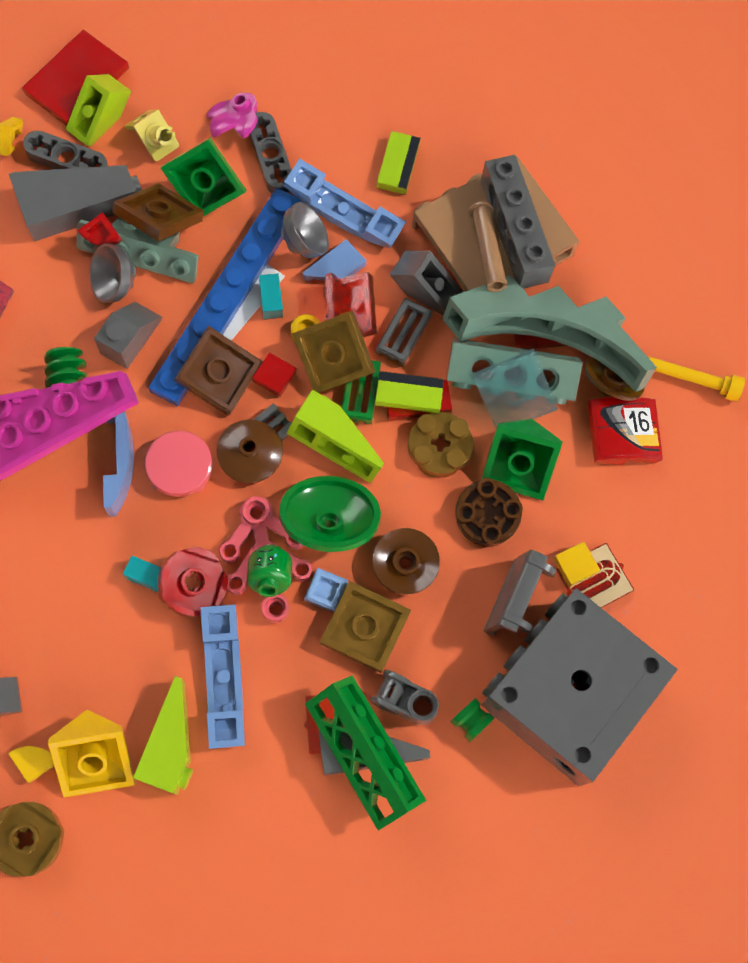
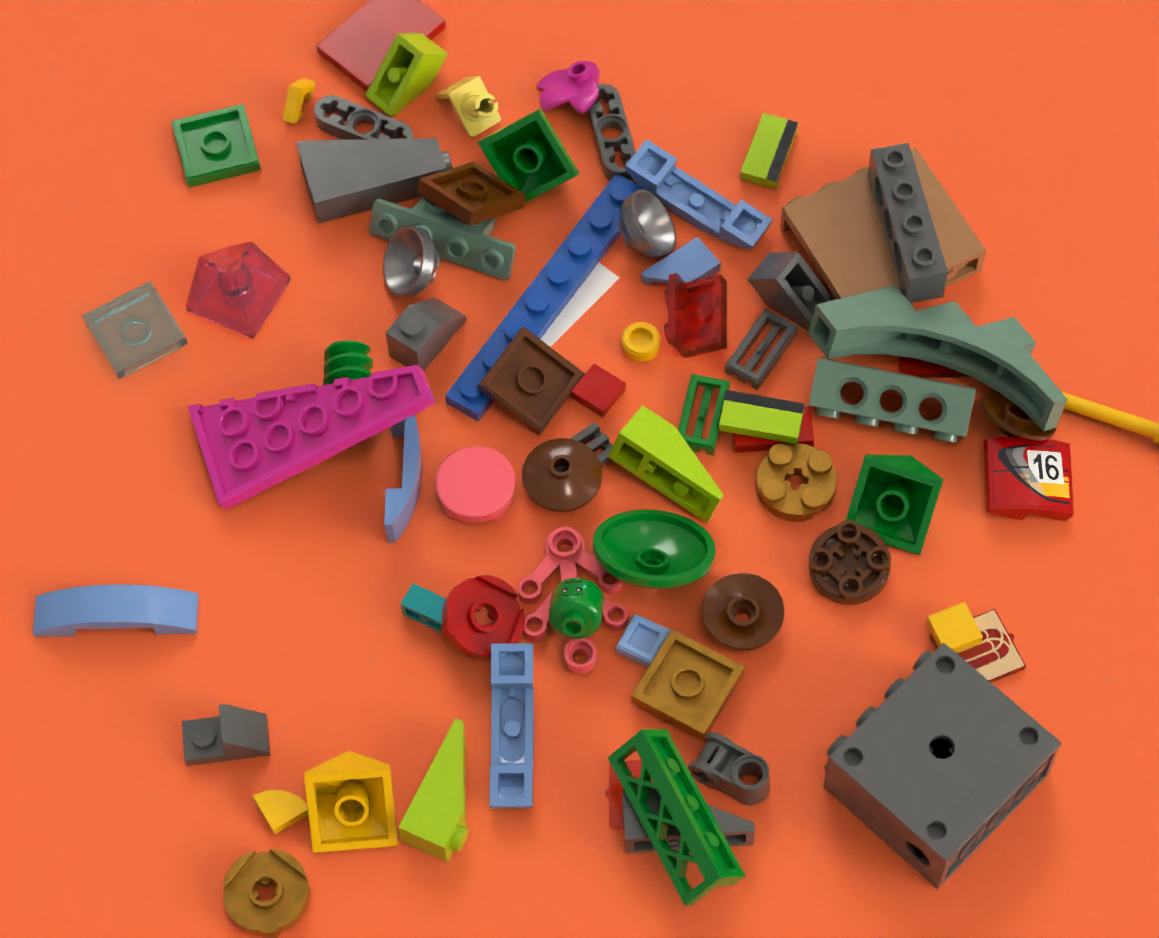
camera: 15 degrees right, 10 degrees down
(100, 231) = (400, 212): red tile -> none
(271, 296) = (600, 298): teal piece -> none
(333, 352) = (672, 364): pearl gold plate -> none
(472, 719) = (810, 798): green wheel -> none
(488, 245) = (865, 212): medium nougat pin -> none
(515, 389) = (892, 417): clear light blue tile -> none
(517, 593) = (875, 651): dark grey piece -> none

